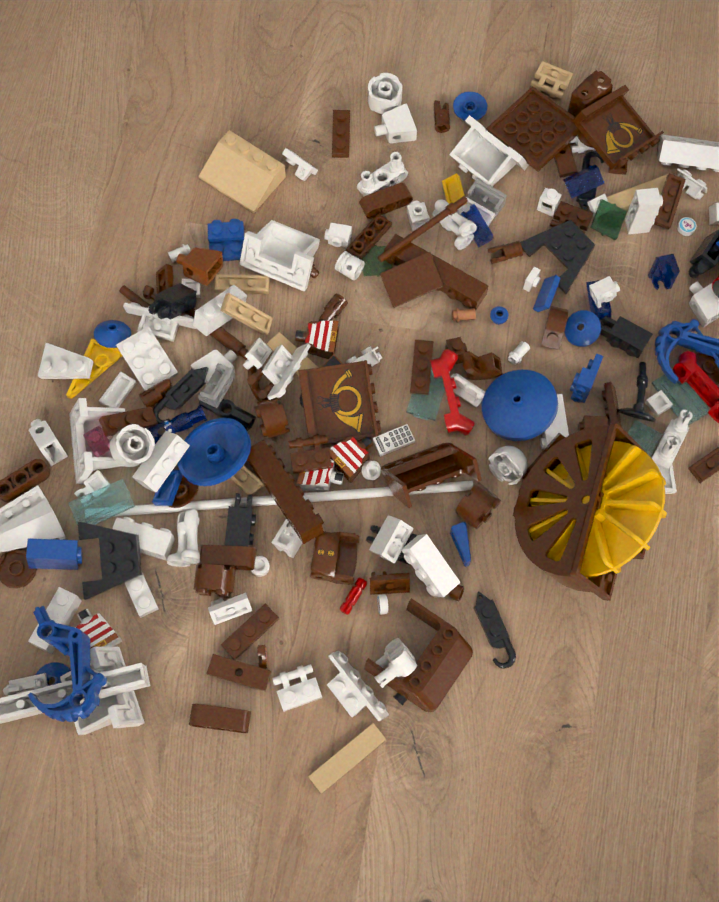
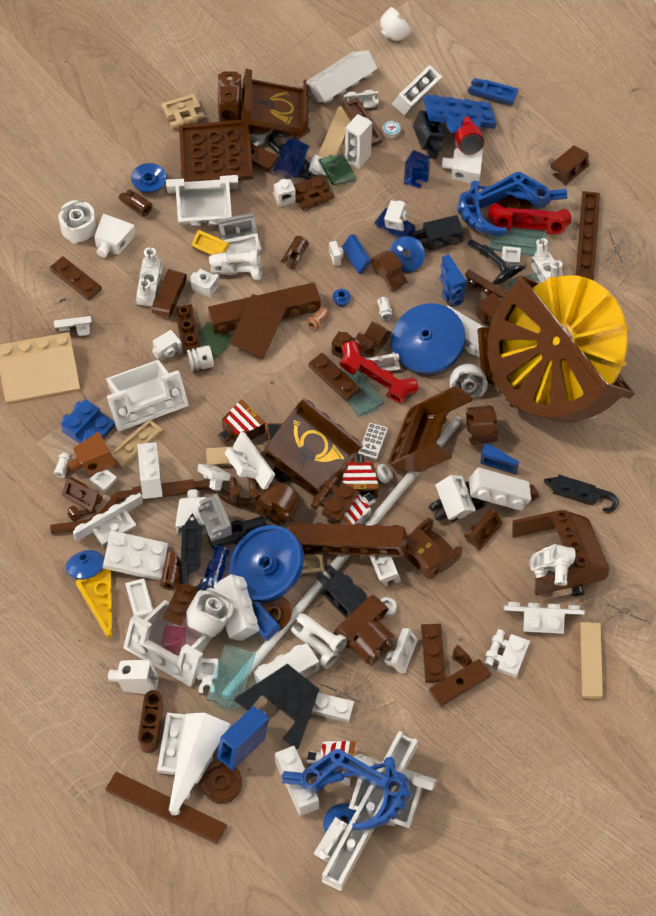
camera: 50 degrees left, 10 degrees down
(63, 364) = (77, 617): white wing -> none
(173, 302) = (111, 493): black hinge -> none
(220, 718) = (483, 722): reddish brown beam -> none
(246, 314) = (172, 454): tan tile -> none
(331, 312) = (224, 397): reddish brown hinge -> none
(353, 596) = (471, 562): red axle -> none
(368, 354) = (287, 405): white hinge -> none
(382, 602) = (496, 546): white tile -> none
(450, 209) = (229, 254): reddish brown bar -> none
(483, 233) = (266, 249): clear blue hinge -> none
(567, 245) = (332, 209): black wing -> none

